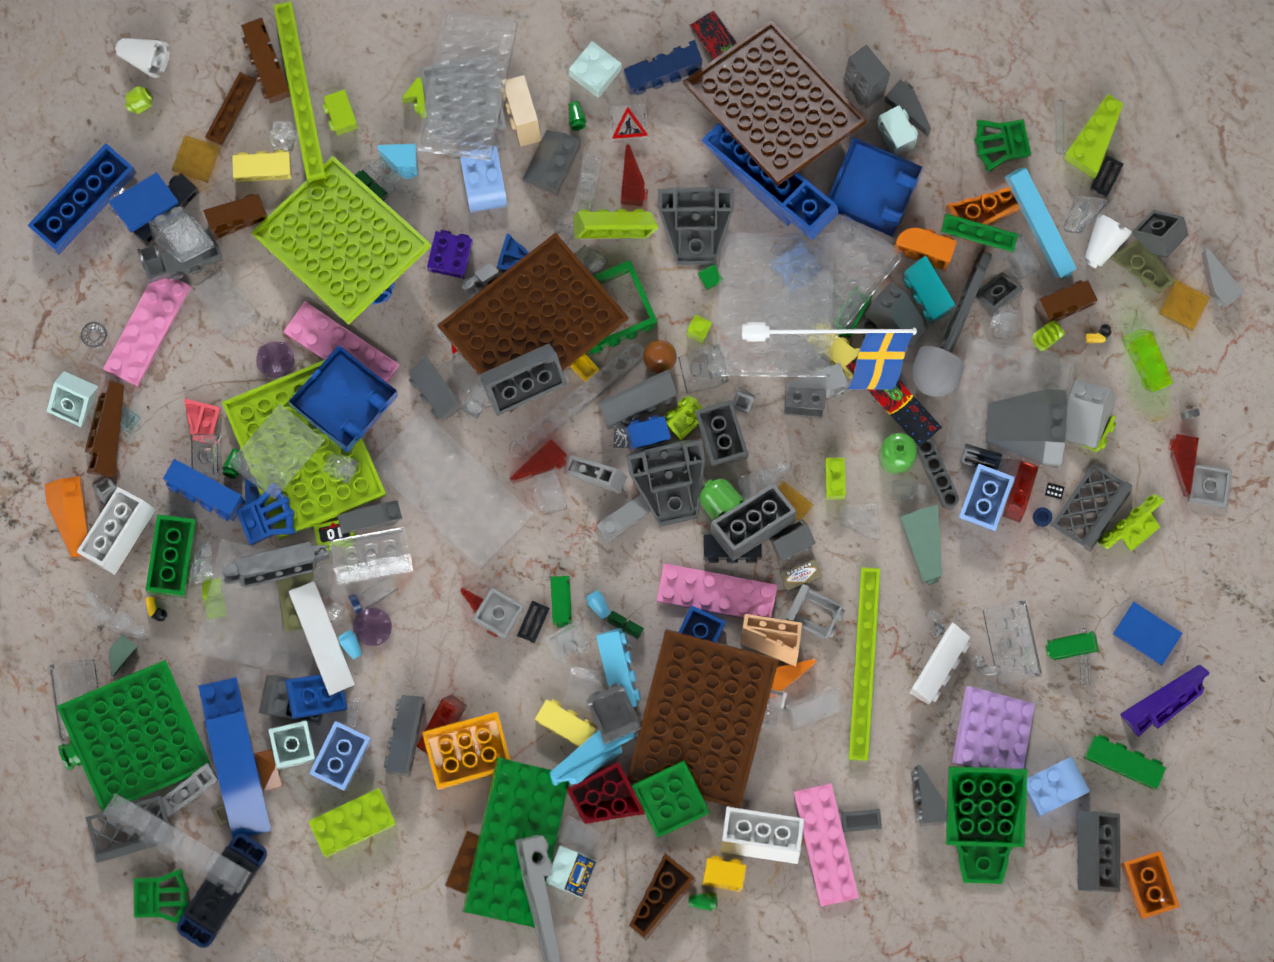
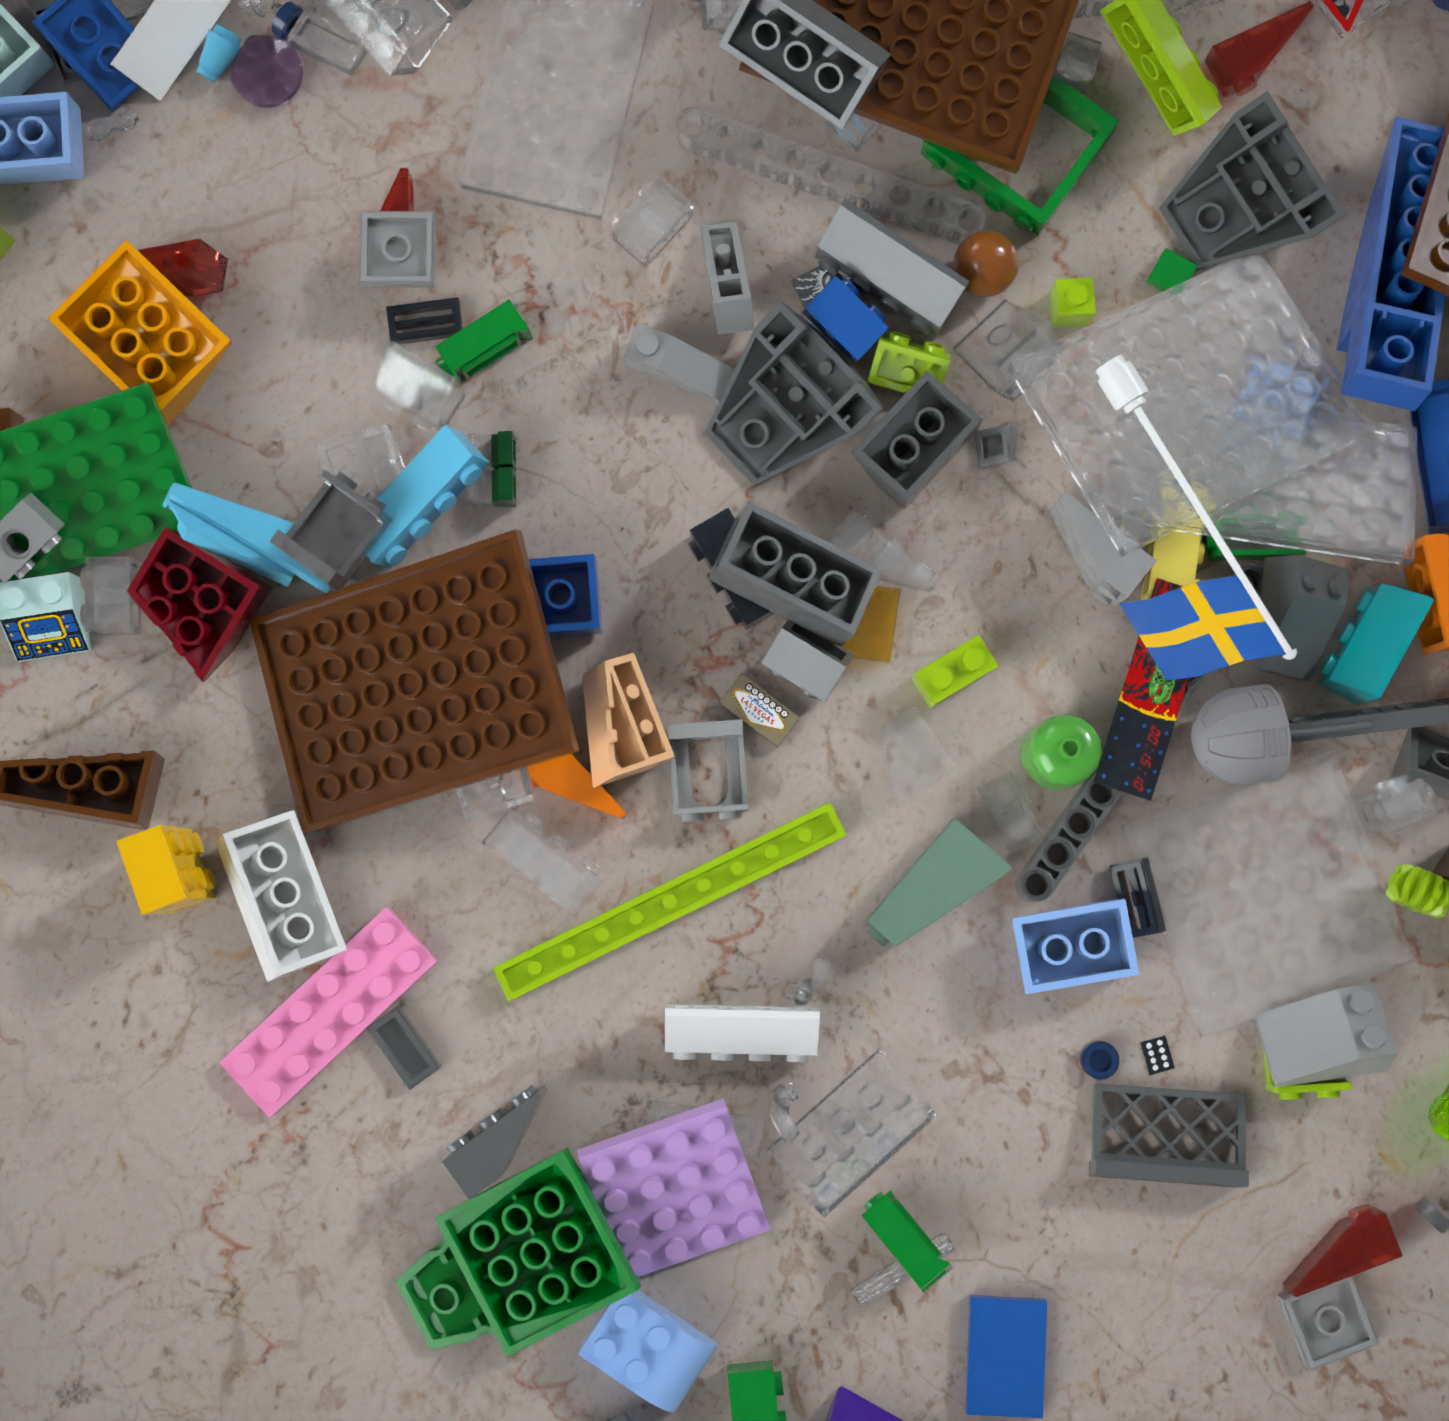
camera: 65 degrees right, 5 degrees up
(405, 735) = (100, 227): dark grey slope -> none
(545, 460) = (702, 180): clear red slope -> none
(565, 723) = (283, 463): light yellow brick -> none
(584, 368) = (896, 153): yellow tile -> none
(598, 604) = (514, 405): medium azure cone -> none
(671, 799) = (253, 710): green plate -> none
(704, 901) = (113, 863): green cone -> none
(715, 592) = (647, 588): bright pink plate -> none
(719, 497) = (805, 496): bright green cylinder -> none
(804, 402) = (1053, 544): flat silver panel -> none
(1020, 492) = (1120, 998): clear red slope -> none
(1030, 425) = (1246, 950): dark grey wedge -> none
(1135, 526) = (1179, 1230): lime bracket -> none

